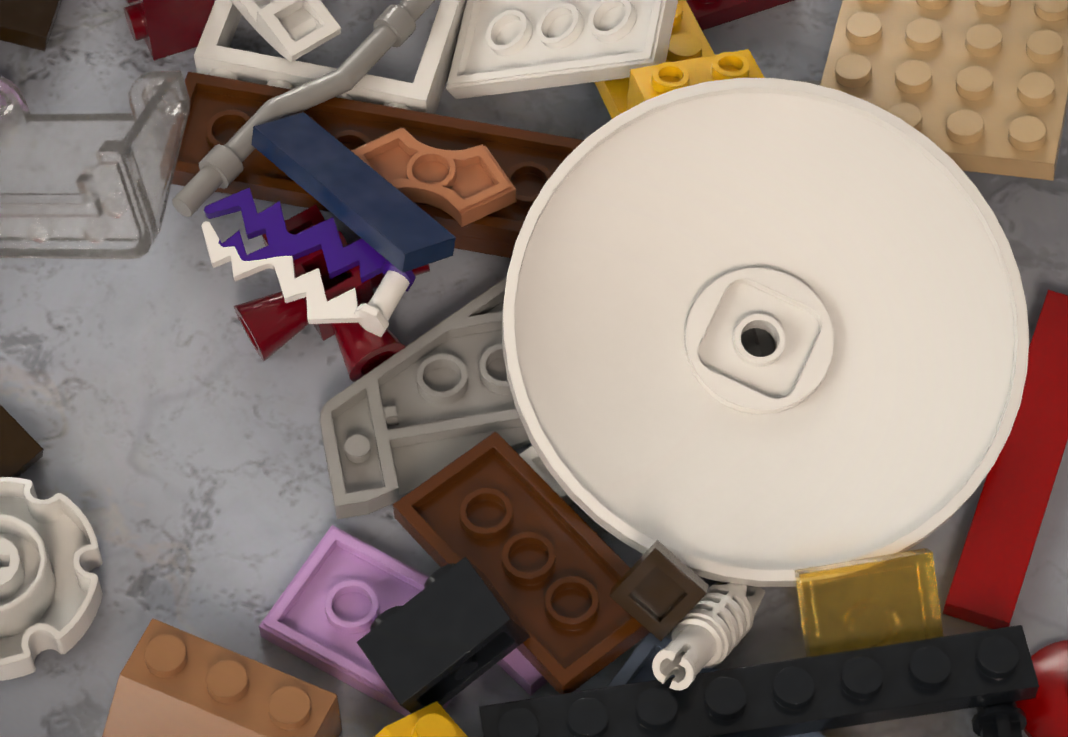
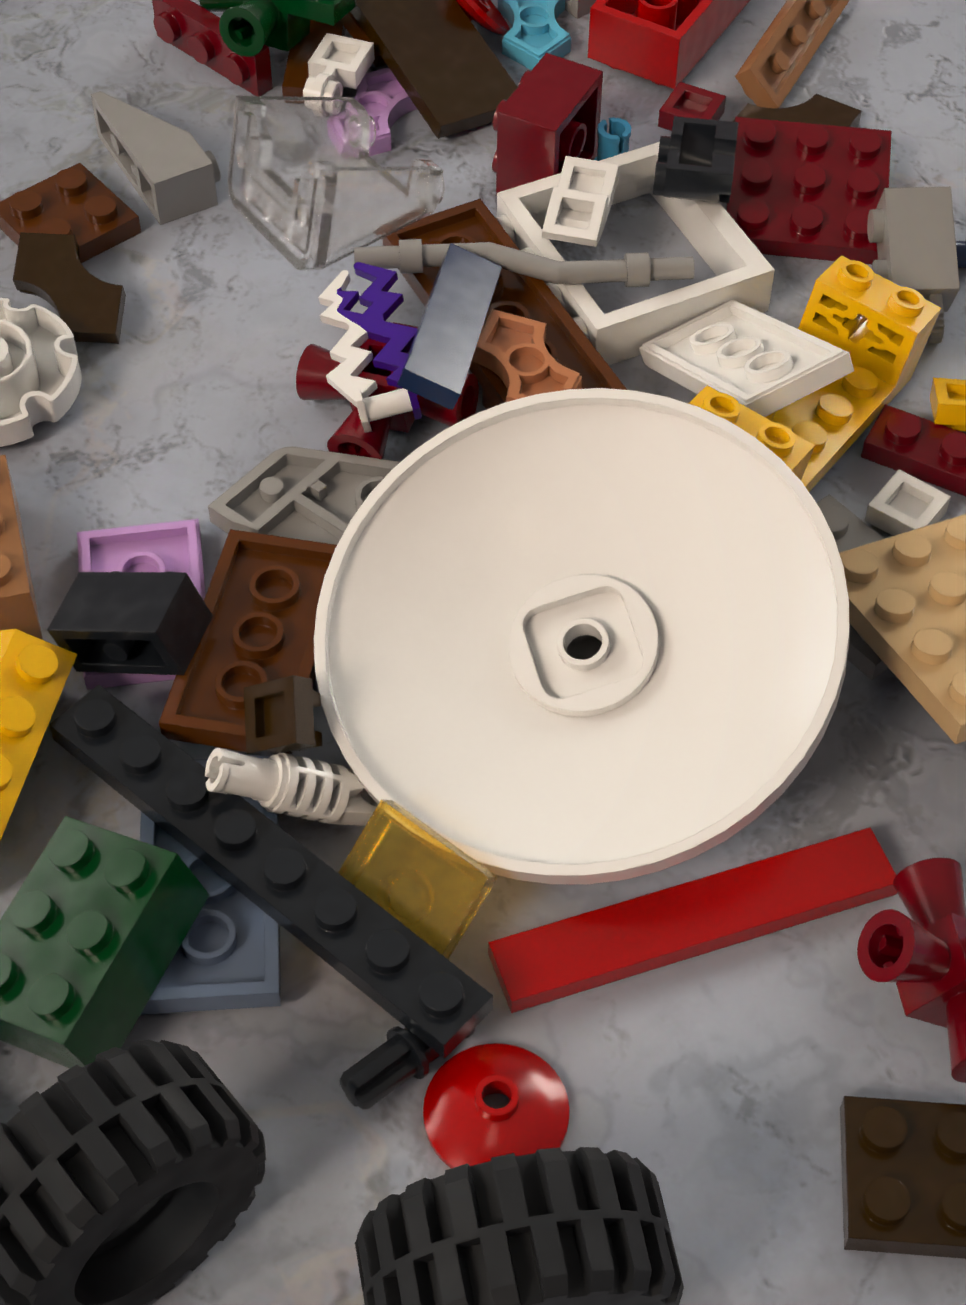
camera: 50 degrees right, 5 degrees down
(783, 43) = (906, 505): none -> white plate

